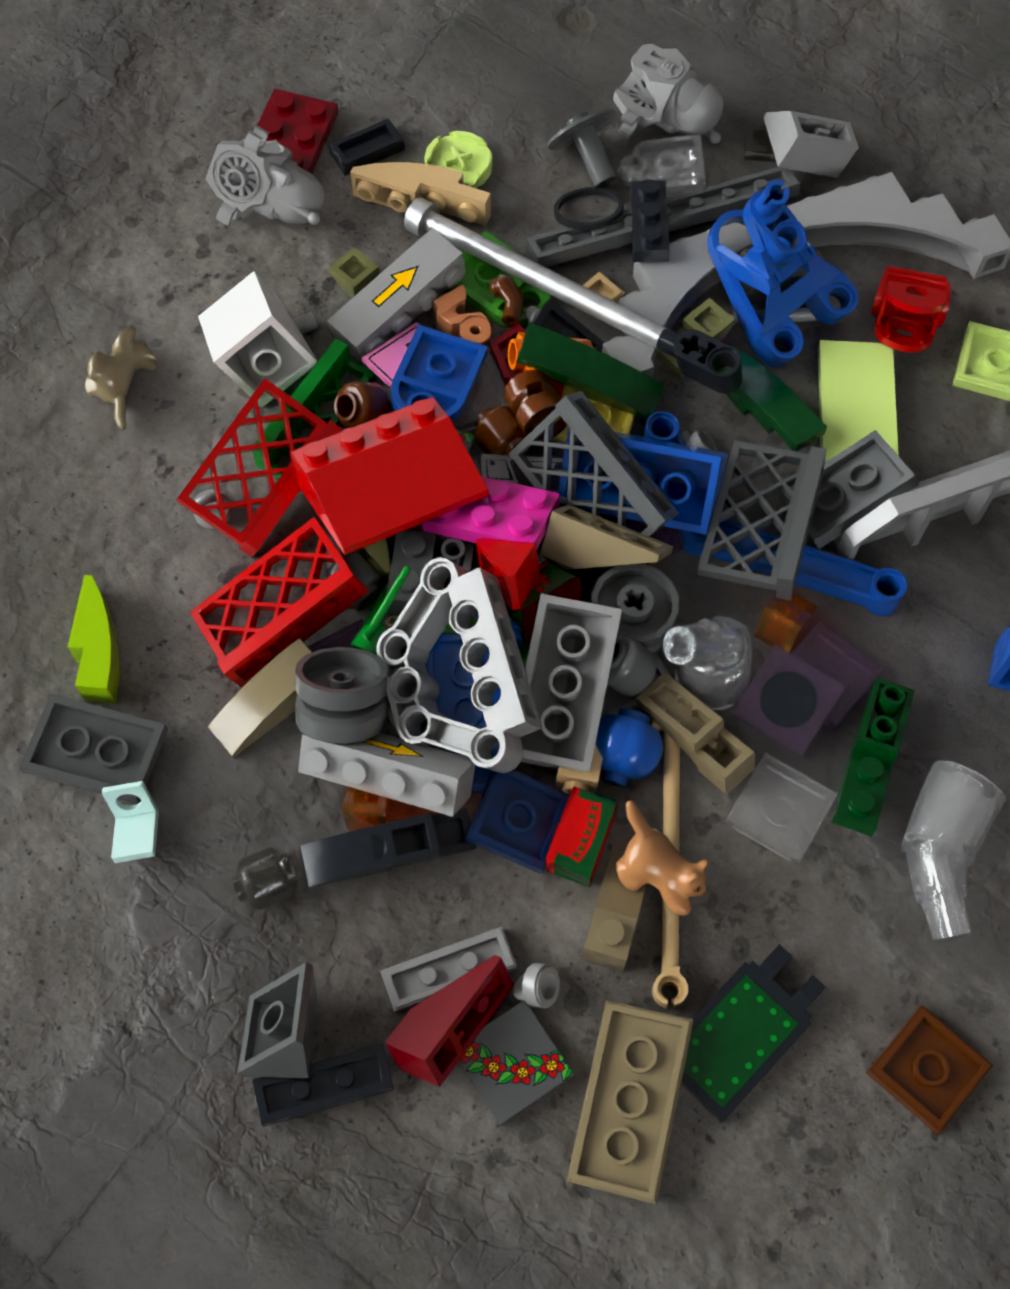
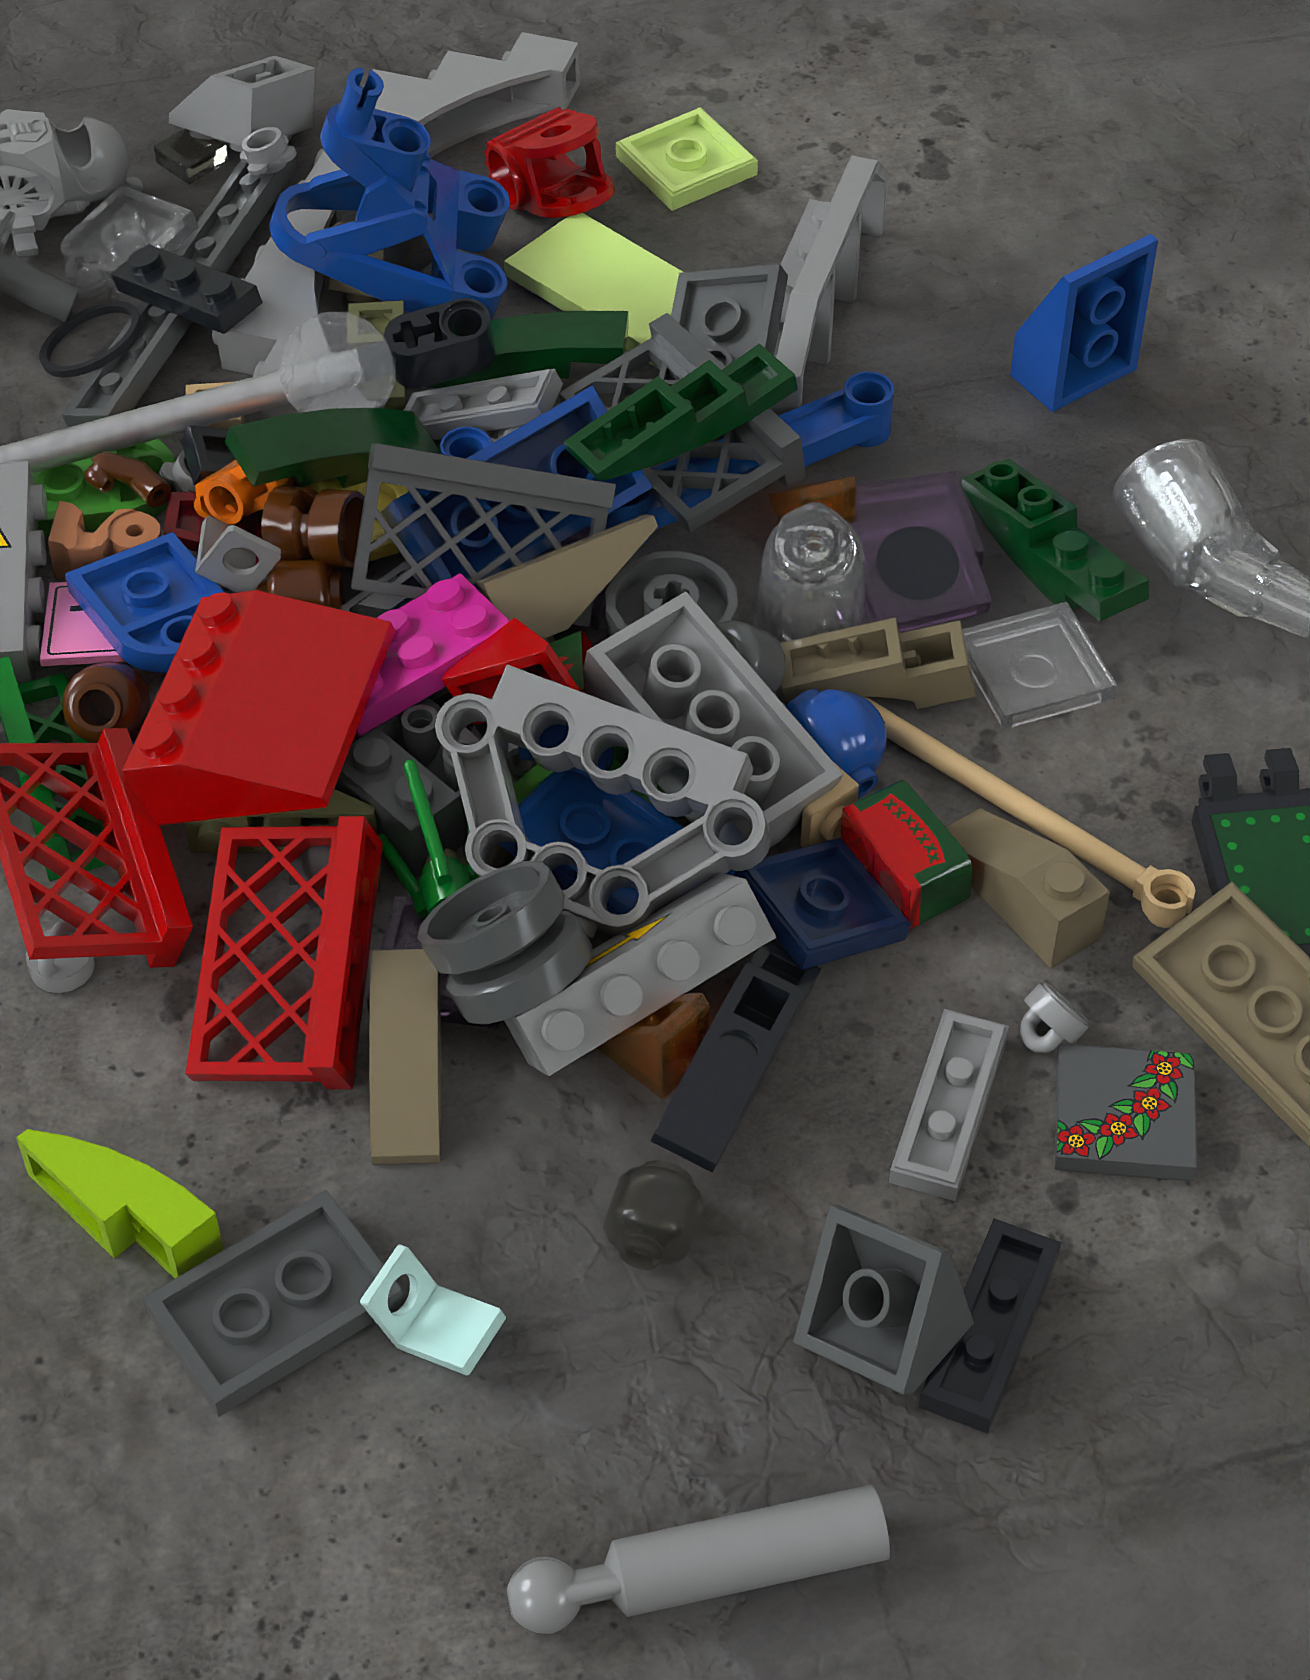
camera: 50 degrees left, 15 degrees down
(94, 1046) = (707, 1559): none -> light grey piece
(446, 1023) = (1026, 1138): dark red slope -> none
(489, 382) = (230, 553): none -> light grey bracket
(639, 331) = (336, 364): none -> clear tile
(655, 861) = (1008, 792): medium nougat animal -> none
(700, 412) = (486, 403): none -> light grey tile
(748, 515) = (677, 418): none -> dark green slope
(779, 170) = (266, 151): none -> light grey plate

